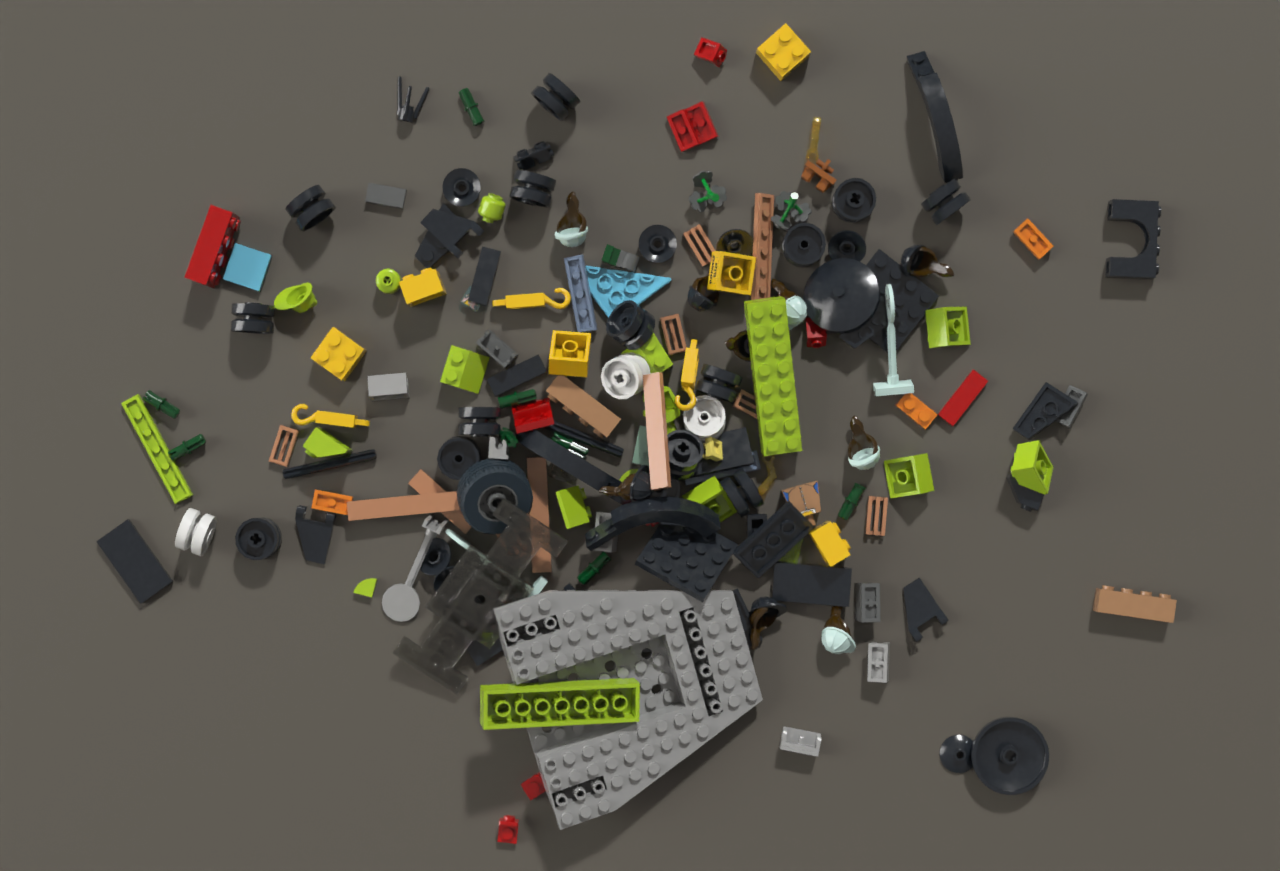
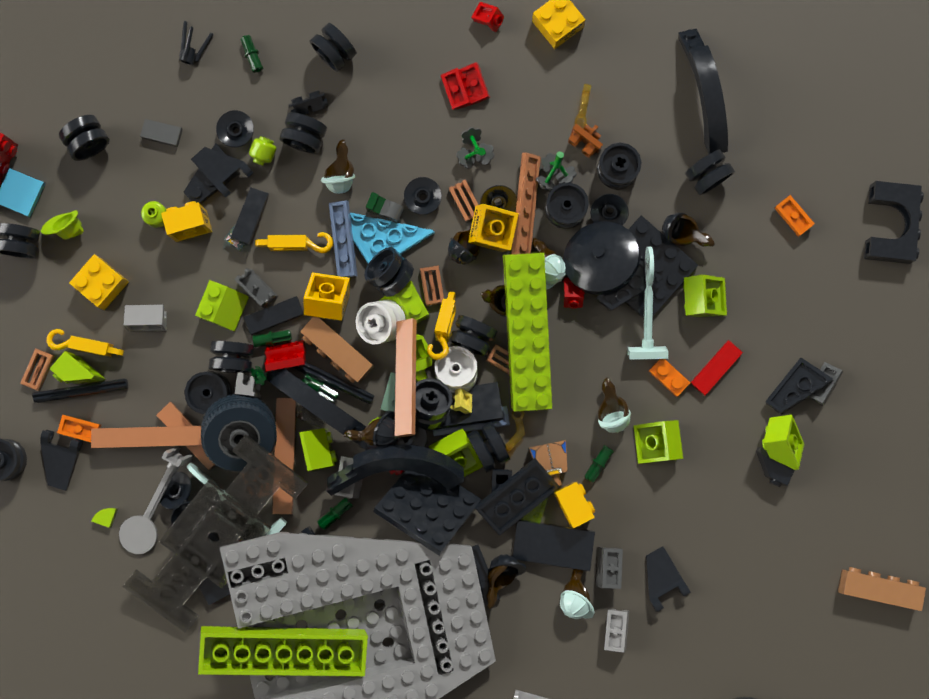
camera: 10 degrees right, 5 degrees down
(884, 514) = (630, 483): nougat tile -> none

